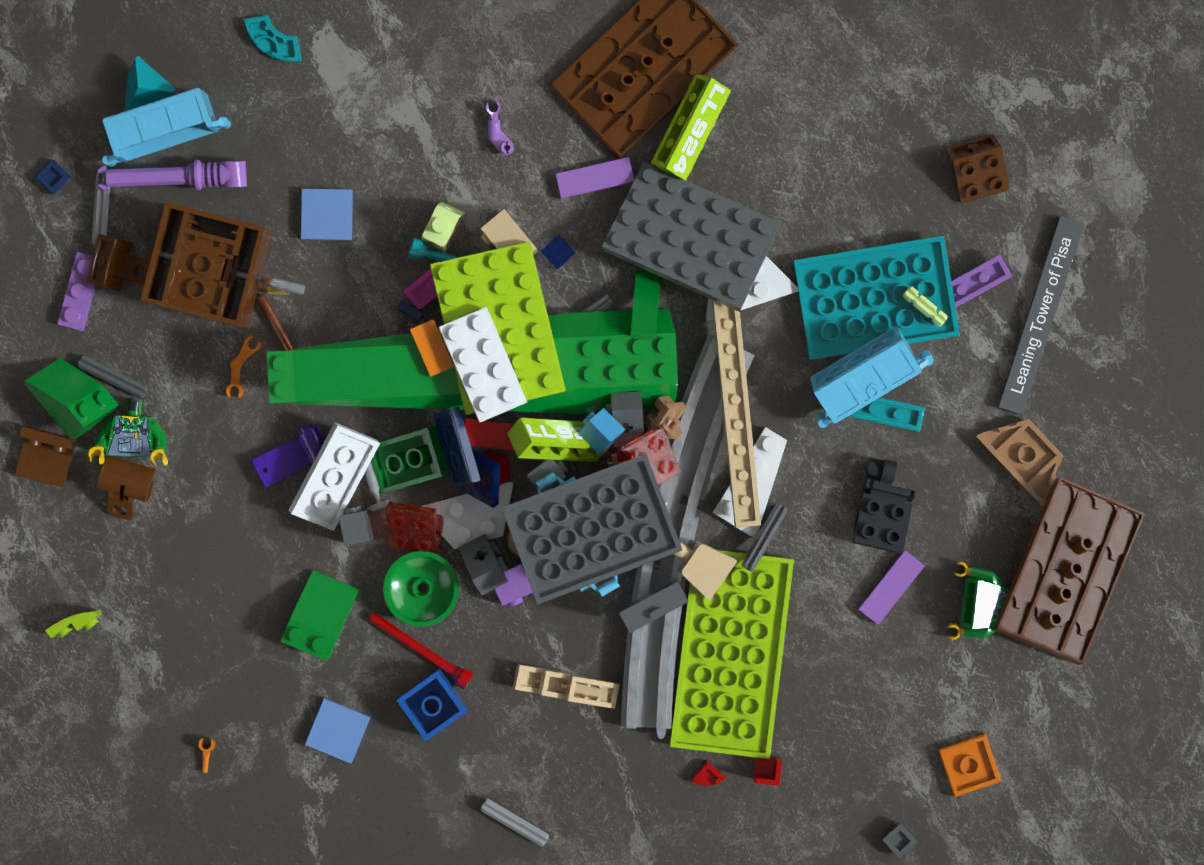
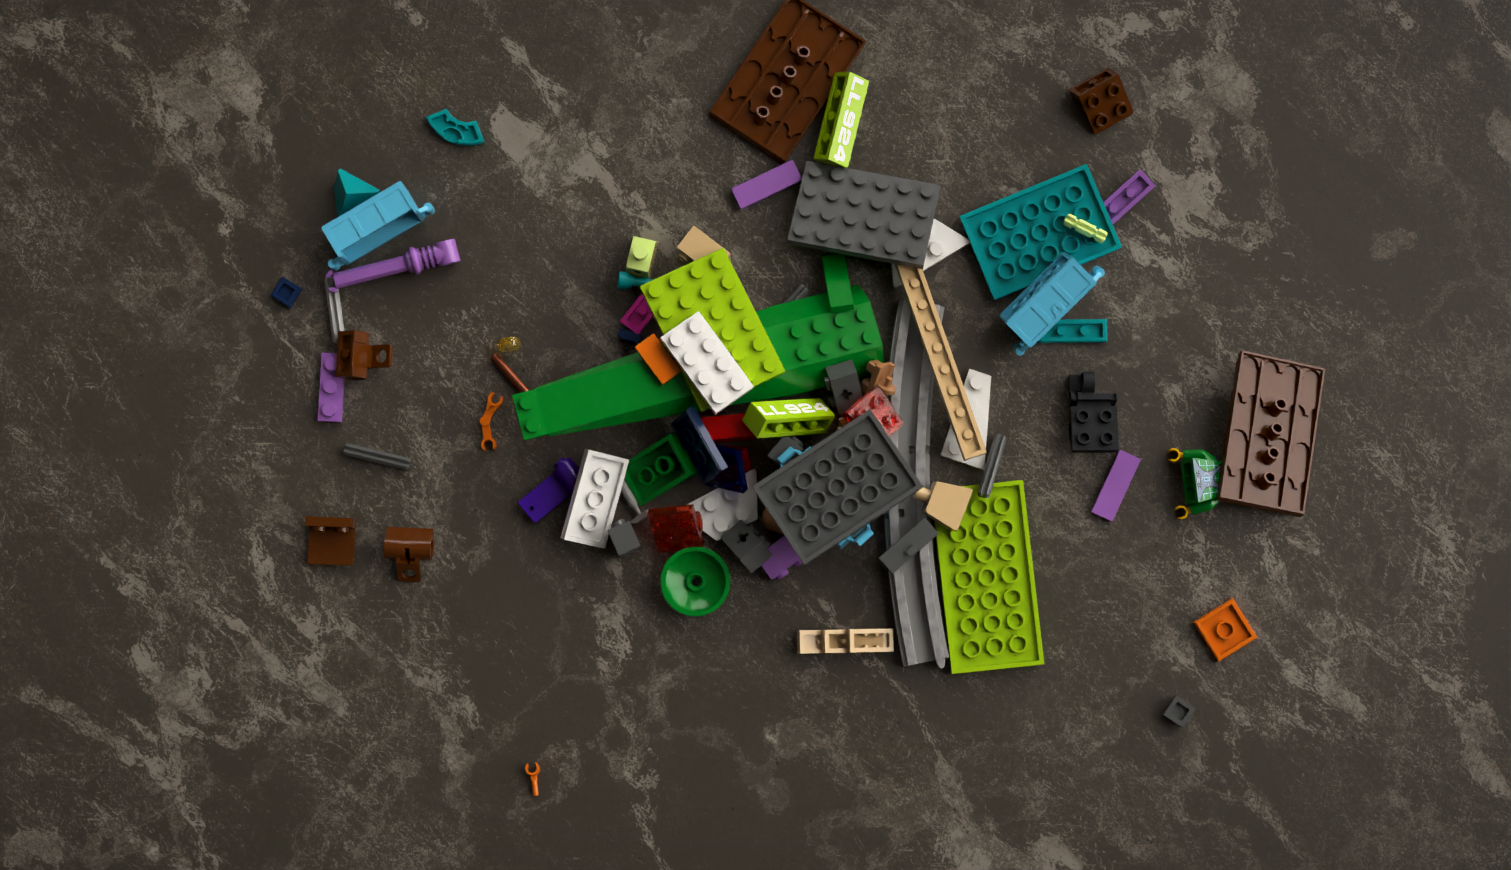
camera: 10 degrees left, 5 degrees down
(71, 397) = (344, 481): green slope -> none
(79, 621) = (394, 681): lime slope -> none
(131, 437) = (405, 505): torso -> none
(191, 262) = (426, 336): reddish brown piece -> none
(320, 615) = (609, 627): green slope -> none
(326, 214) = (536, 270): medium blue tile -> none
(338, 730) = (648, 729): medium blue tile -> none
(432, 704) = (728, 684): blue brick -> none
(460, 675) = (748, 654): red piece -> none
(495, 134) = (669, 166): medium lavender arm -> none
(514, 822) = (827, 776): light grey axle -> none
(558, 252) = (749, 256): clear blue tile -> none
(601, 430) = (824, 401): dark azure brick -> none
(707, 775) = (992, 693): red tile -> none
(767, 770) = (1044, 675): red panel -> none
(1025, 455) = (1206, 341): medium nougat wing -> none
(1041, 315) = (1189, 215): dark grey tile -> none

